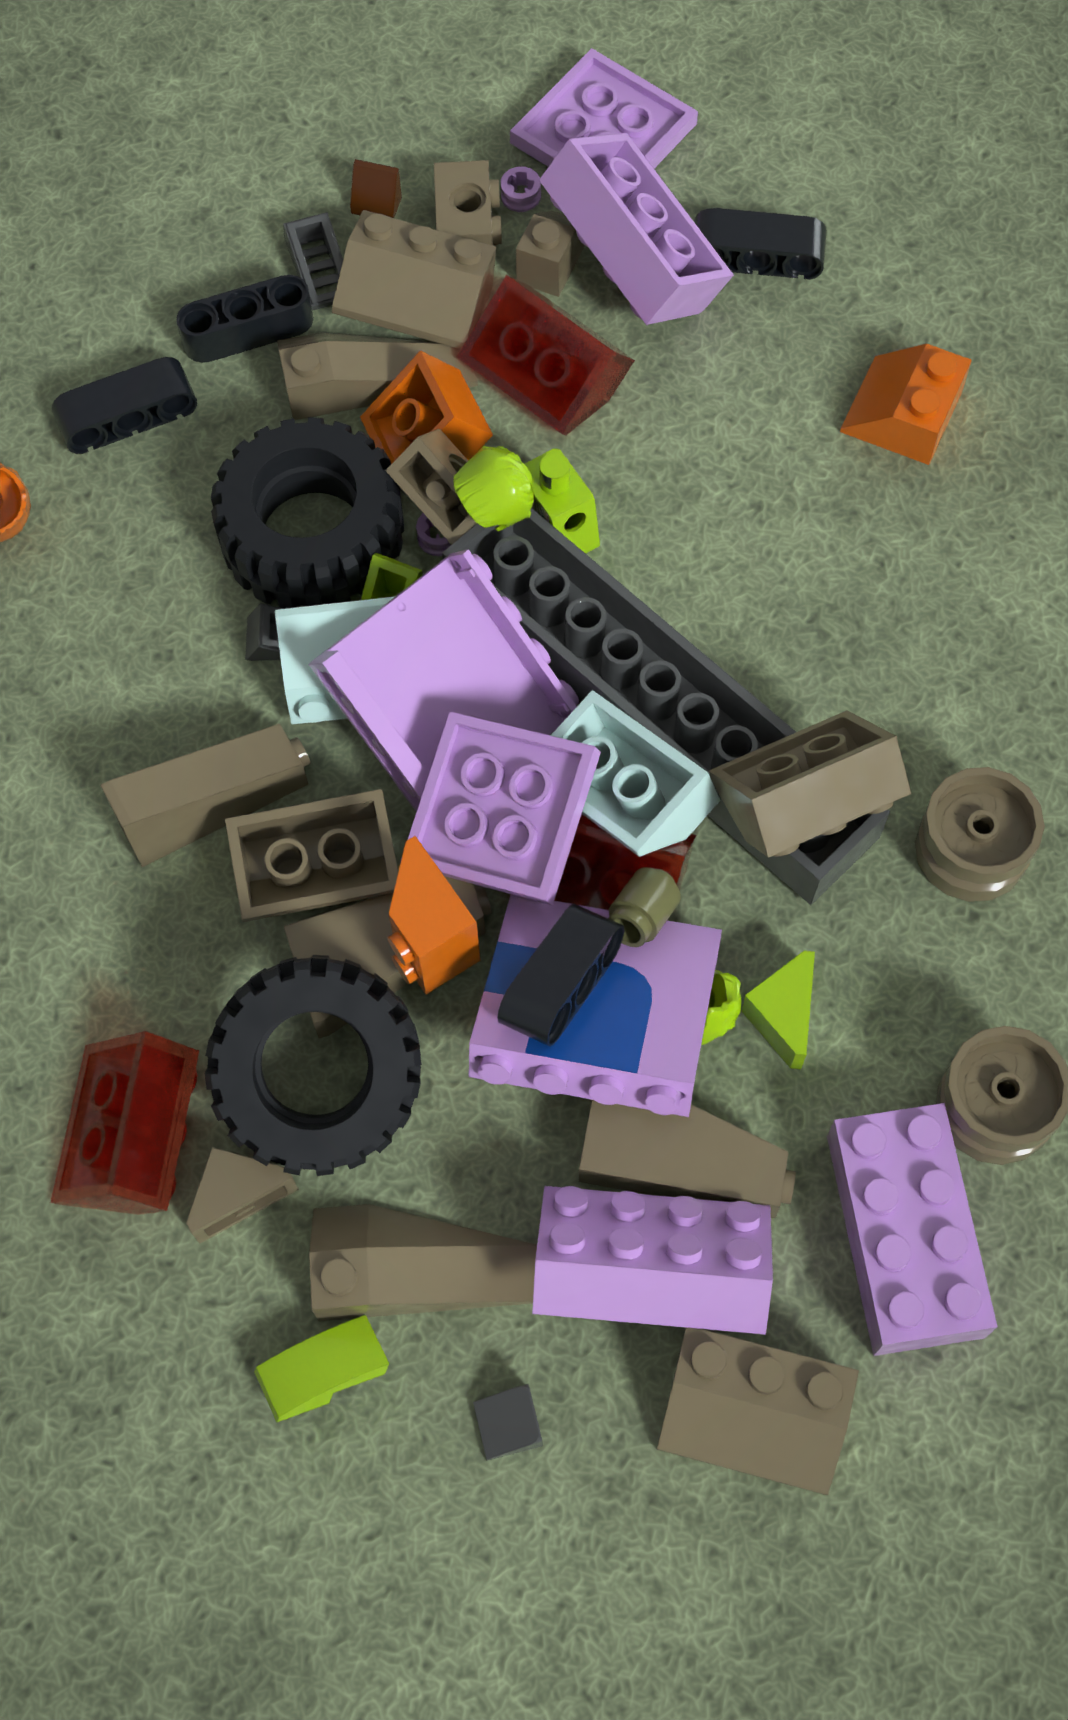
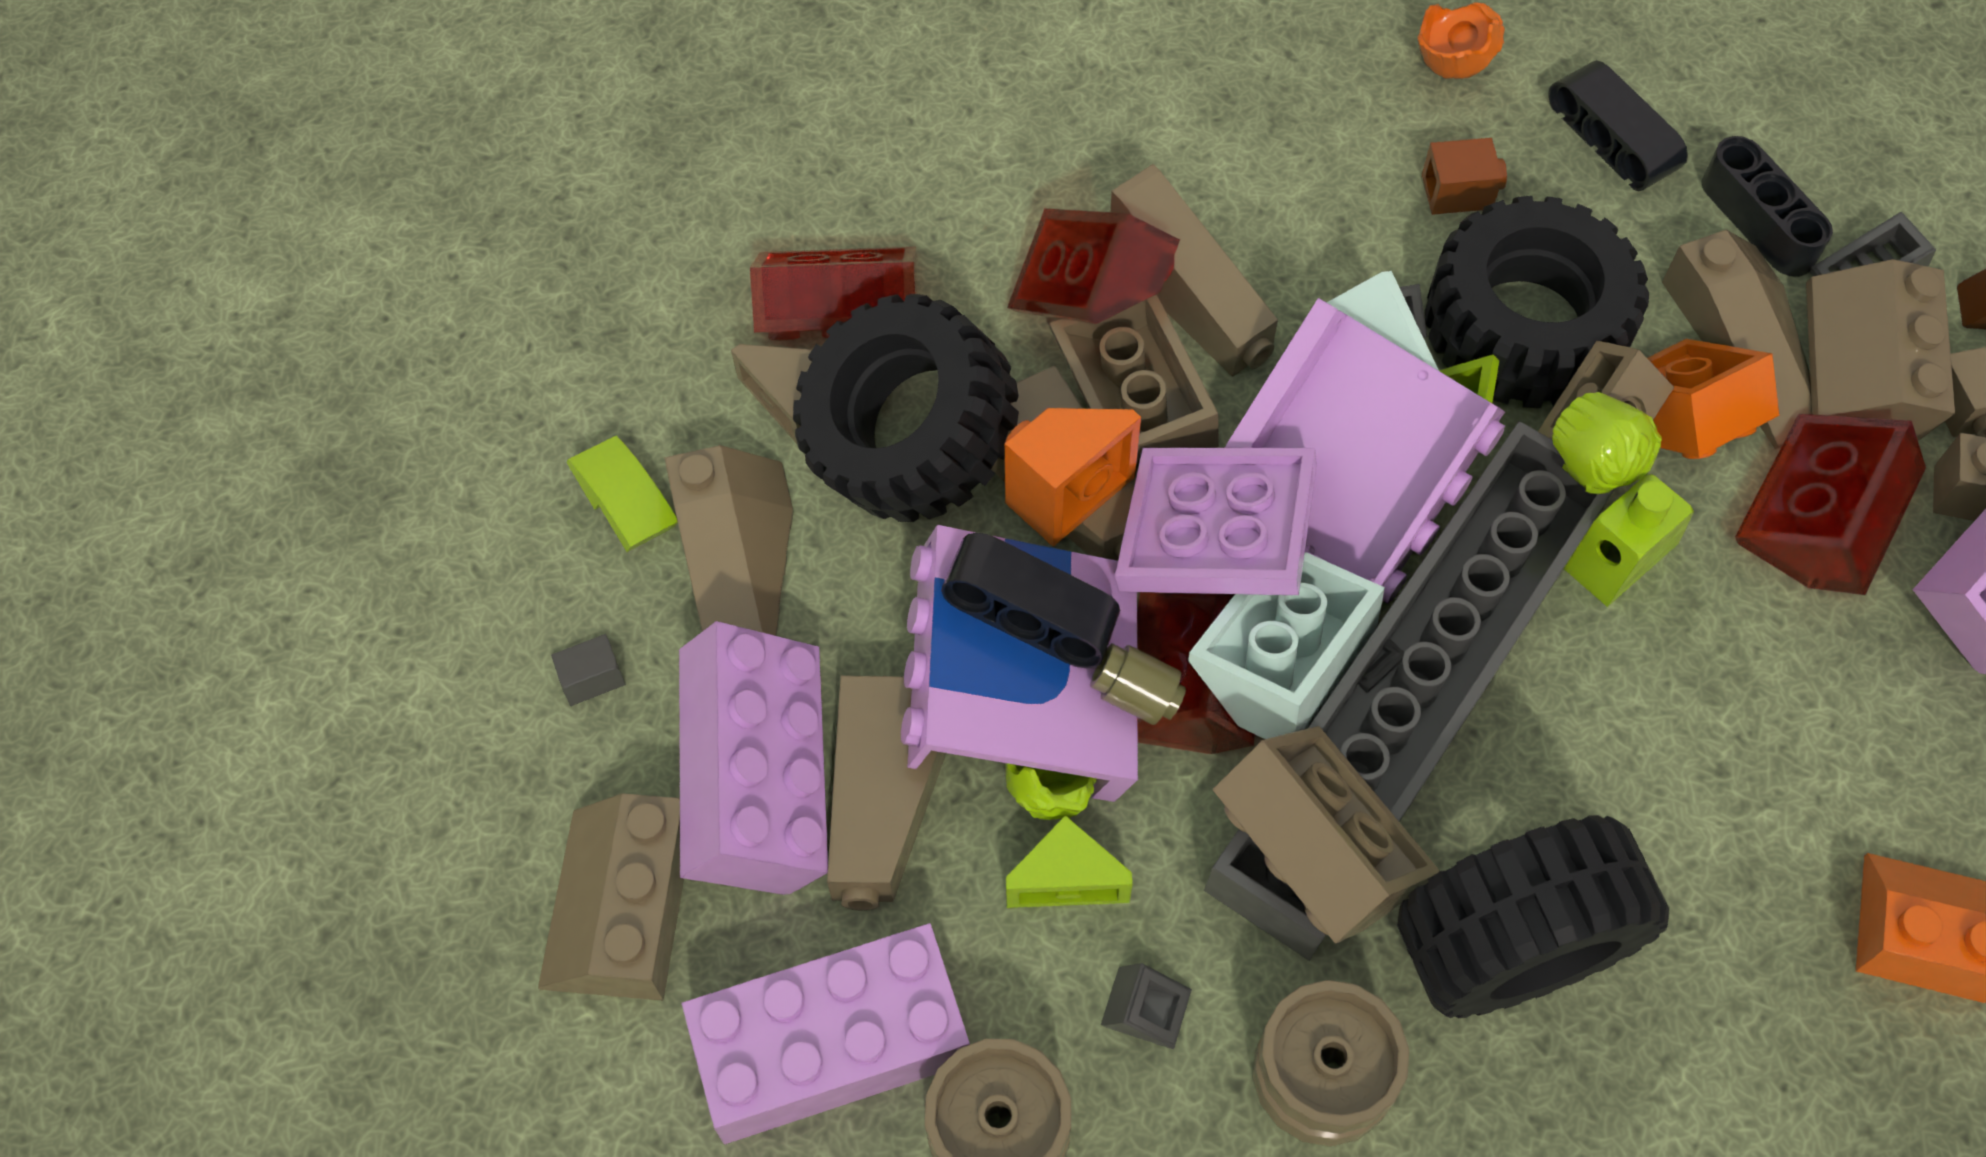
camera: 80 degrees right, 5 degrees down
(147, 540) = (1463, 175): none -> dark orange brick
(195, 872) = (1092, 265): none -> clear red slope
(902, 971) = (1146, 1005): none -> dark grey slope
(905, 647) = (1531, 916): none -> black tyre

